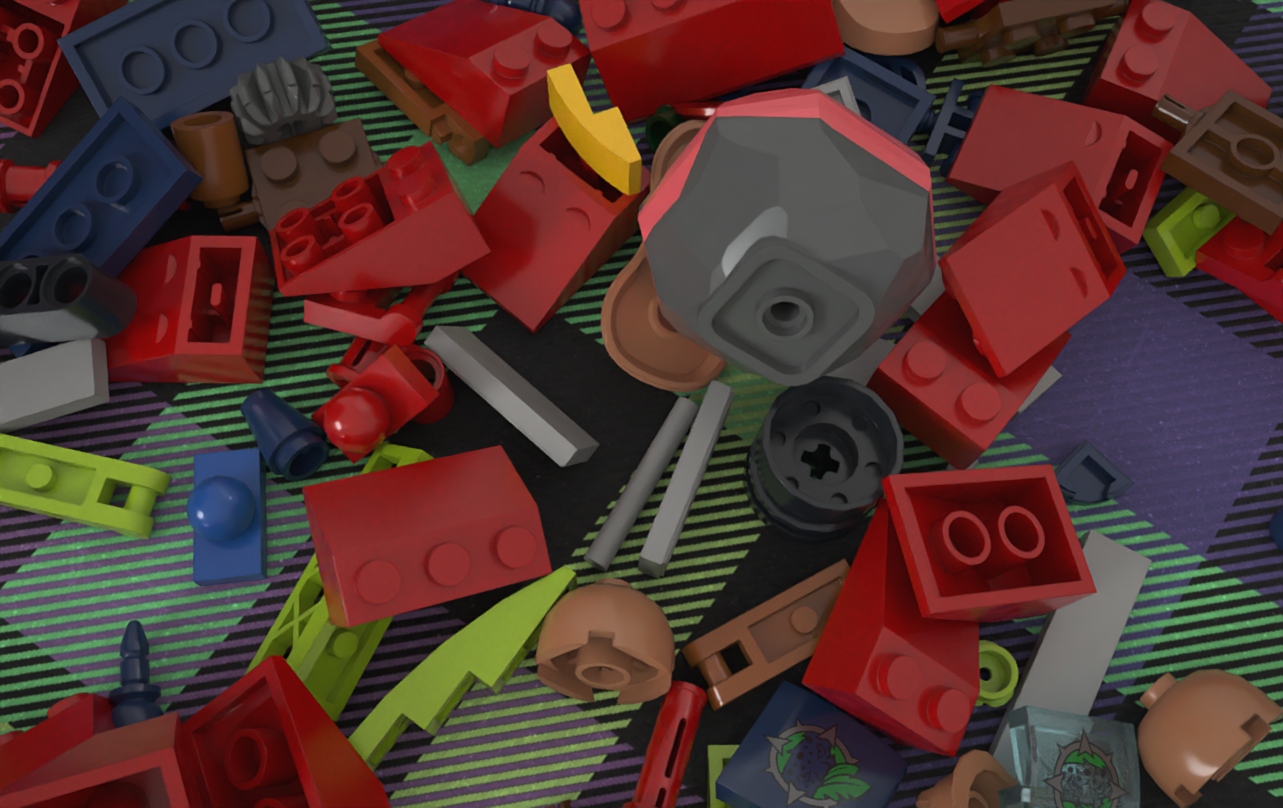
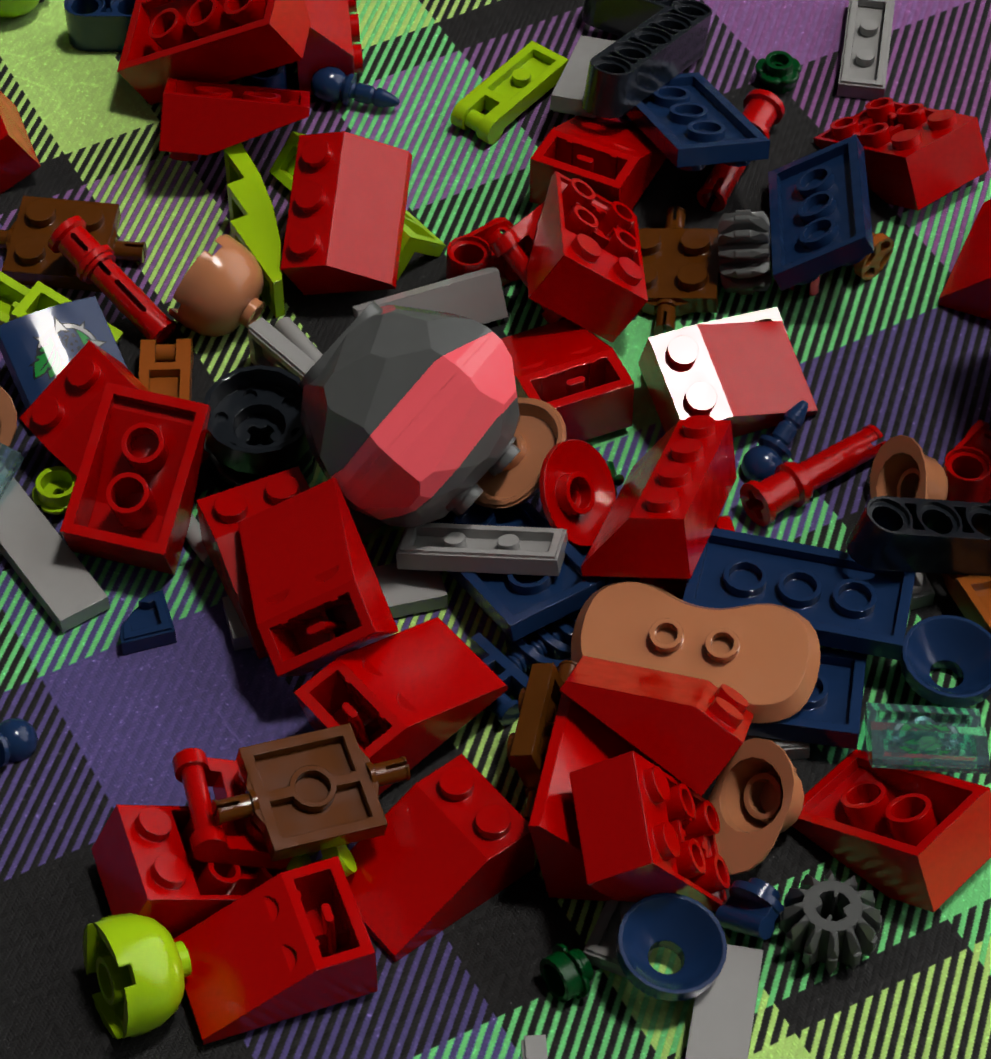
camera: 120 degrees right, 20 degrees down
(214, 150) = (722, 195): dark orange brick -> none
(229, 517) = (444, 159): blue tile -> none
(284, 435) = (479, 195): dark blue cone -> none
(375, 404) = (452, 210): red tile -> none
(599, 137) = (599, 362): yellow slope -> none

